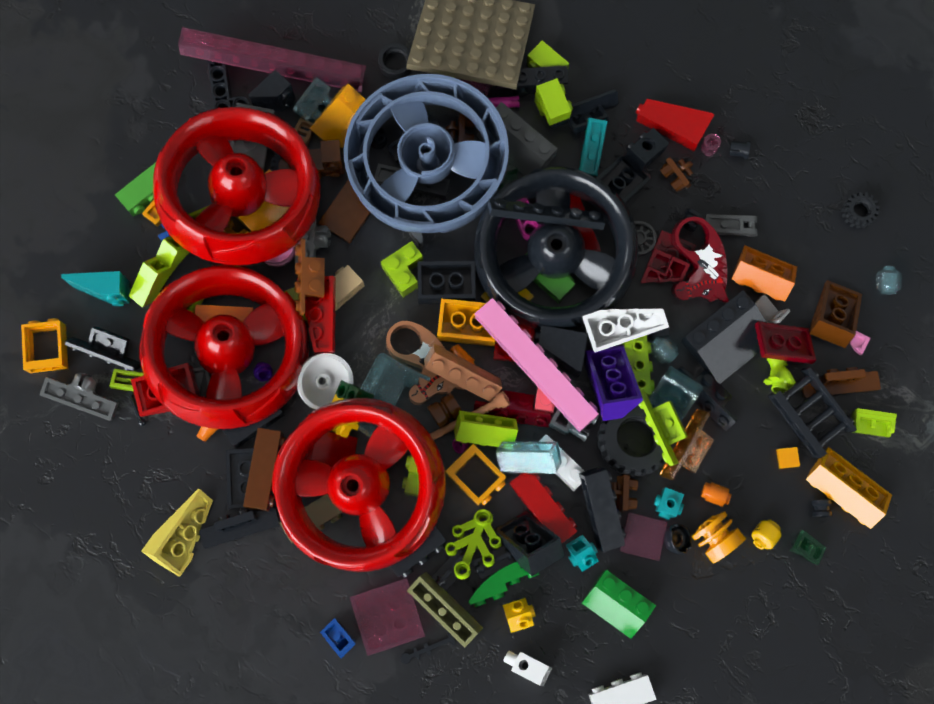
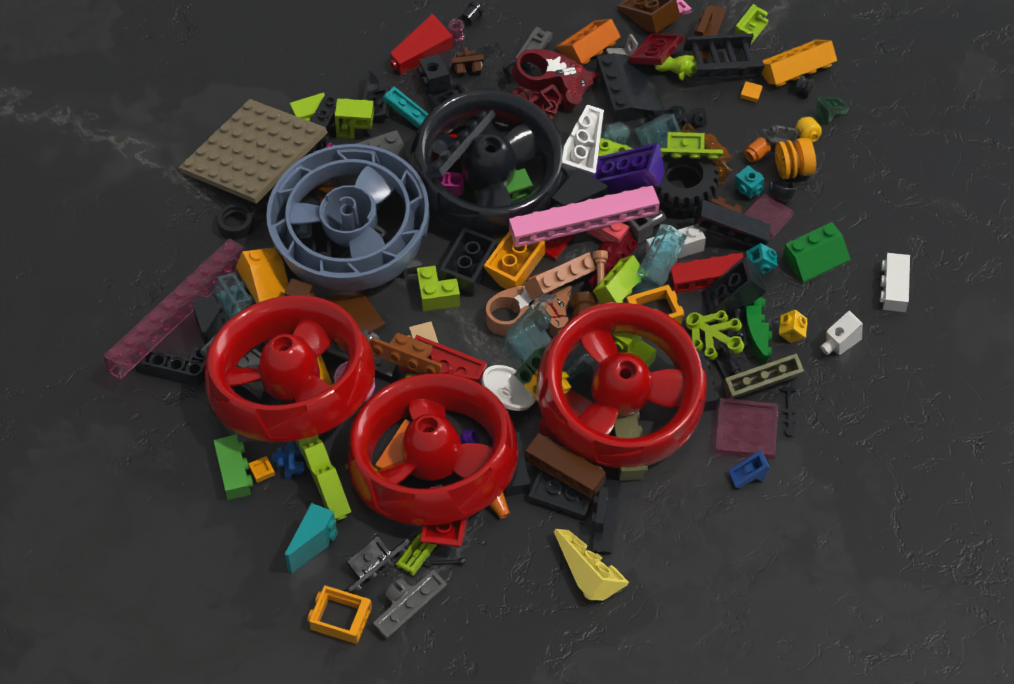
camera: 65 degrees left, 20 degrees down
(741, 511) = (779, 133): none -> dark grey hinge

